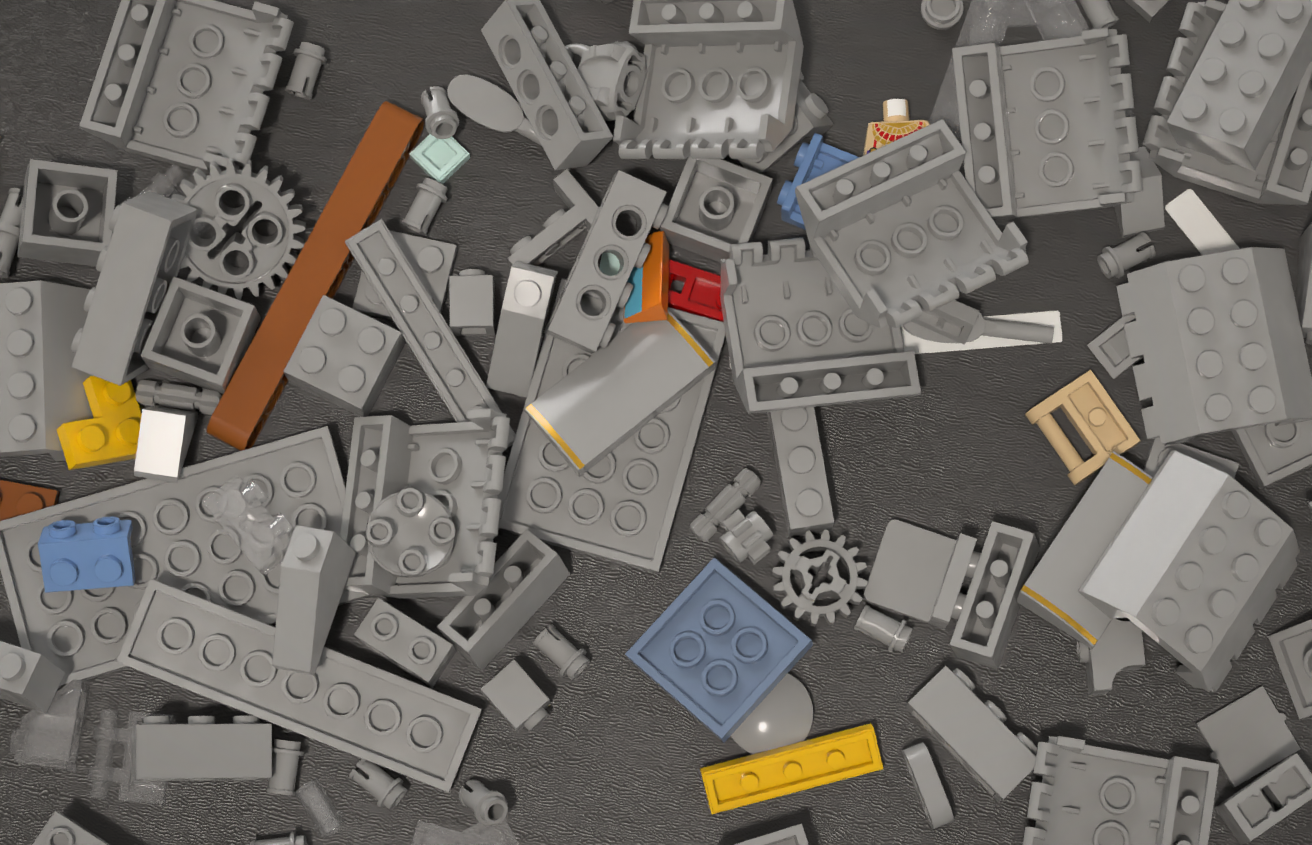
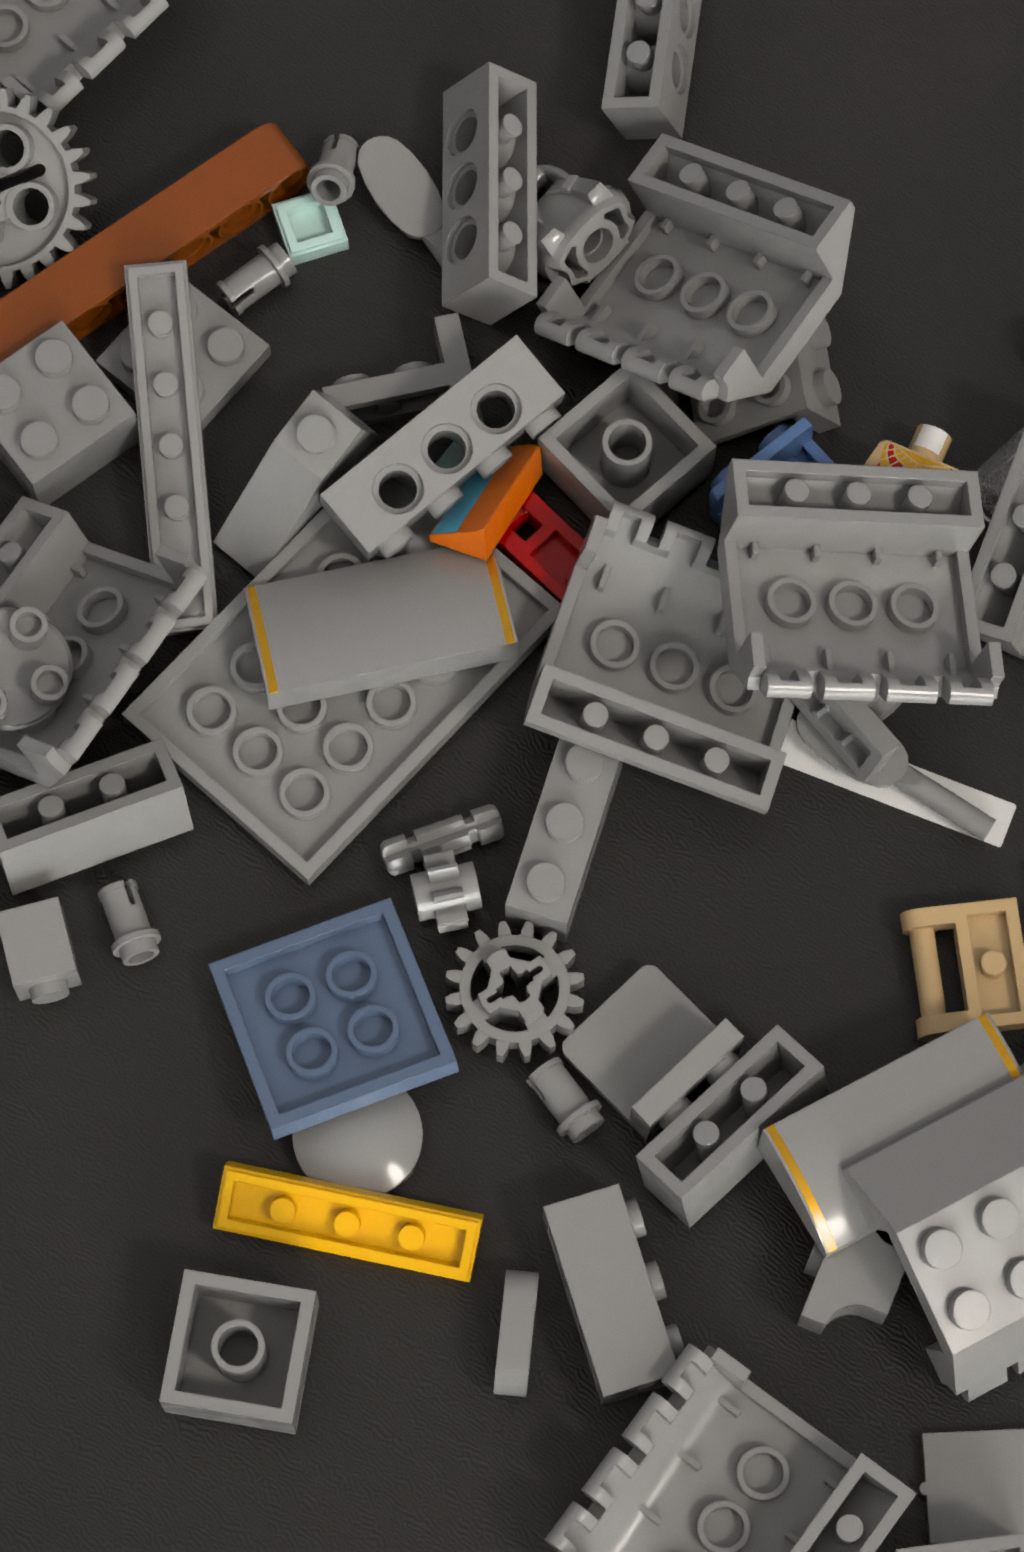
camera: 25 degrees right, 5 degrees down
(305, 69) = (196, 40): light grey pin -> none
(472, 303) = (246, 424): light grey brick -> none

